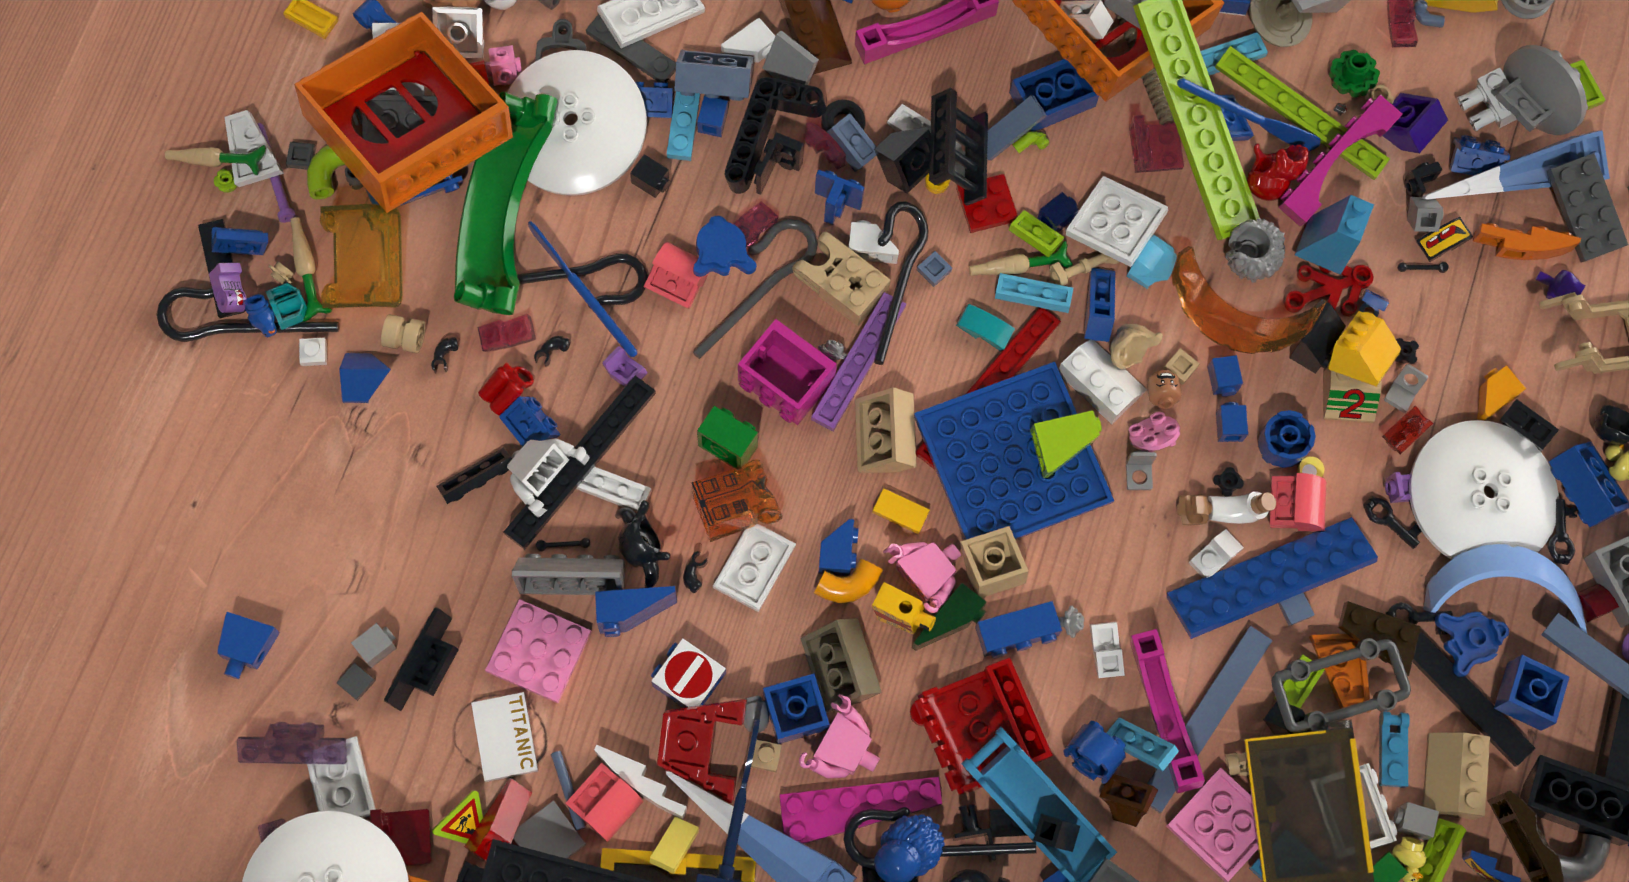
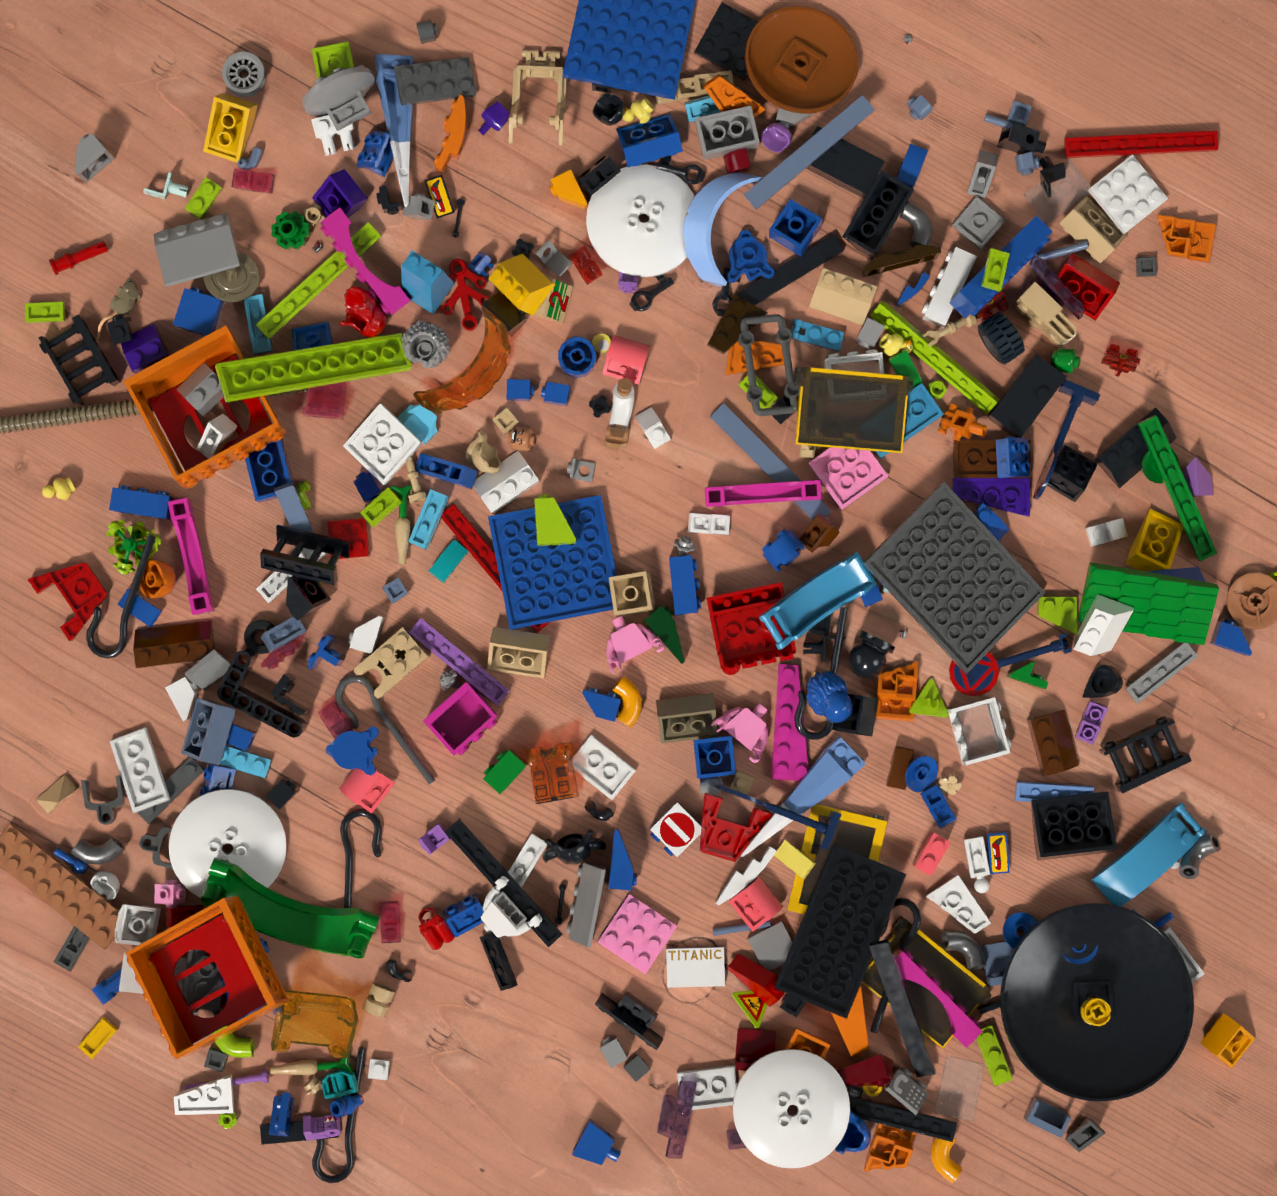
camera: 75 degrees left, 15 degrees up
(215, 157) = (208, 1126): piece -> none
(360, 376) = (405, 1035): blue slope -> none
(551, 344) = (404, 886): black arm -> none
(585, 293) = (376, 855): blue piece -> none
(901, 511) = (579, 652): yellow tile -> none
(901, 610) = (653, 672): yellow torso -> none
(905, 271) = (395, 613): black piece -> none
(1056, 832) = (837, 591): black brick -> none
(1143, 744) = (784, 517): medium azure plate -> none
(1154, 433) = (555, 453): bright pink plate -> none
(1271, 577) = (678, 392): blue plate -> none
(1283, 131) = (332, 301): blue piece -> none
(1296, 609) = (699, 381): sand blue slope -> none

